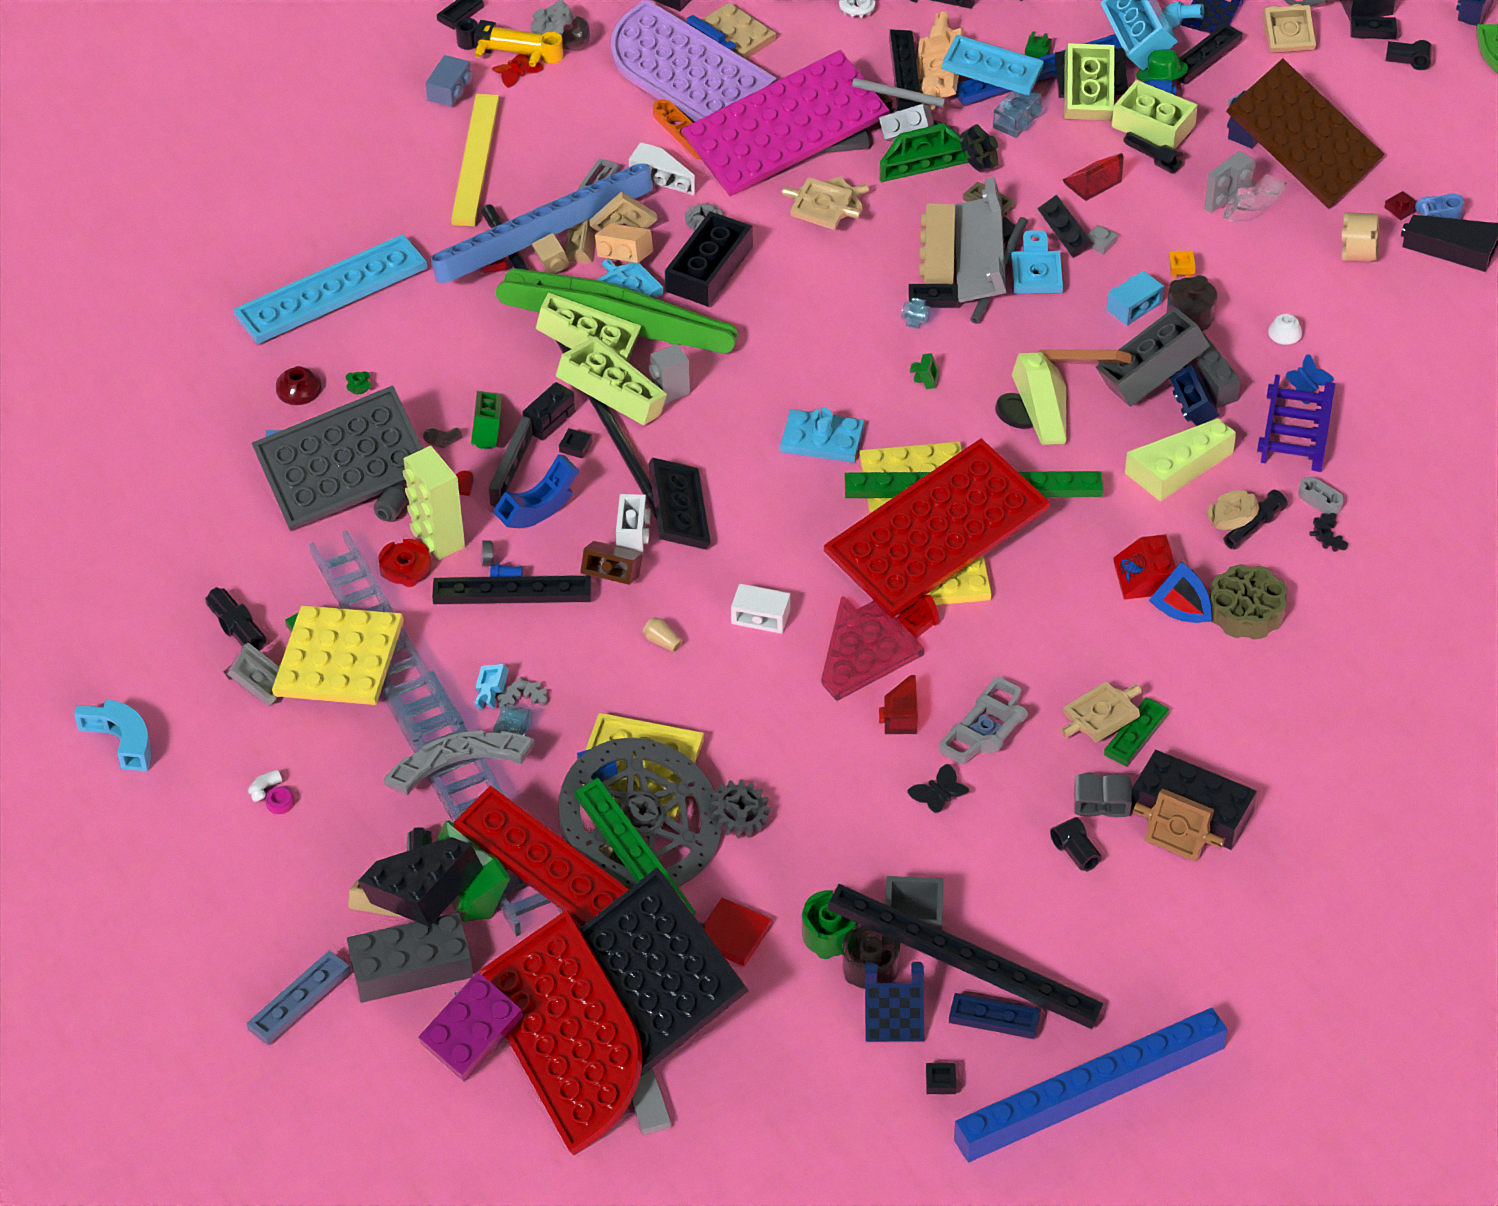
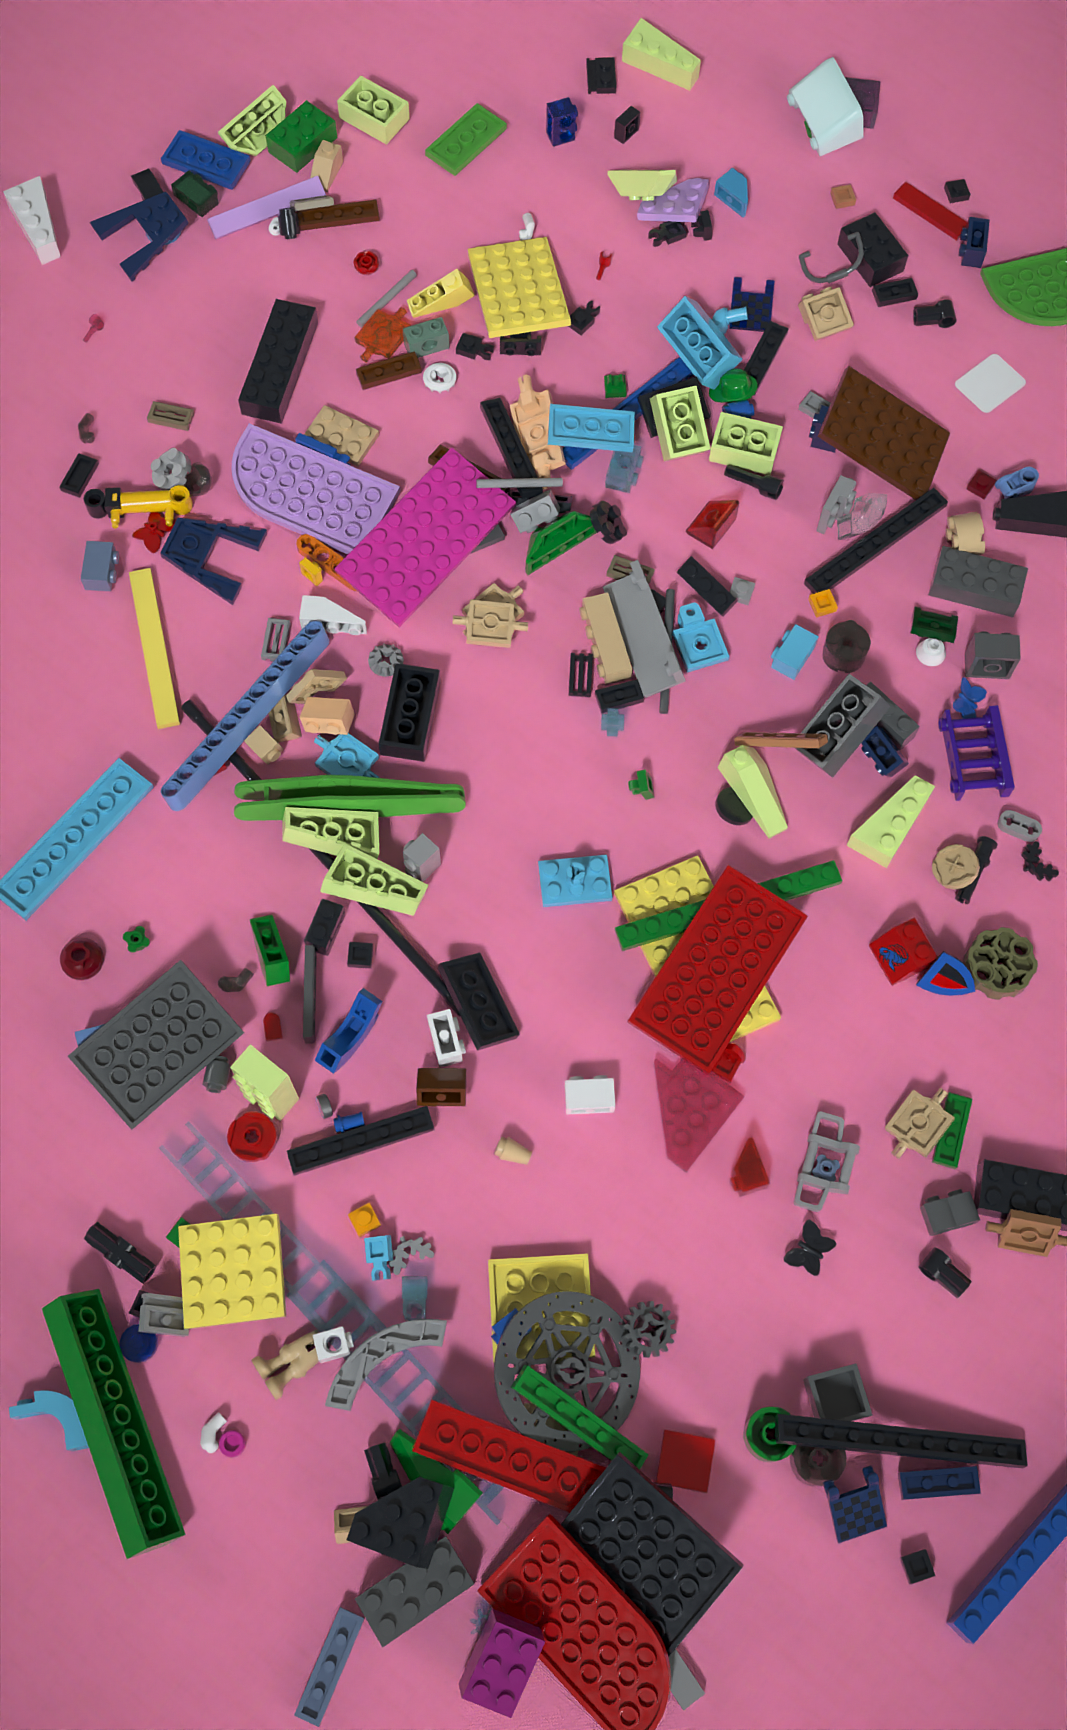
camera: 20 degrees left, 20 degrees up
(171, 741) = (113, 1423): none -> green brick
(222, 695) = (137, 1345): none -> clear blue plate
(371, 747) = (292, 1353): none -> tan piece
(411, 729) = (321, 1343): none -> white brick
(487, 654) = (364, 1219): none -> light orange plate
(550, 82) = (192, 543): none -> dark blue wing
(658, 129) = (311, 571): none -> yellow plate
(892, 267) = (581, 658): none -> black tile
(1265, 227) = (876, 542): none -> black plate
(1285, 303) = (934, 625): none -> dark green plate
(1346, 341) = (992, 655): none -> dark grey brick
(1360, 280) = (978, 581): none -> dark grey brick
(1449, 125) = (990, 383): none -> white sticker

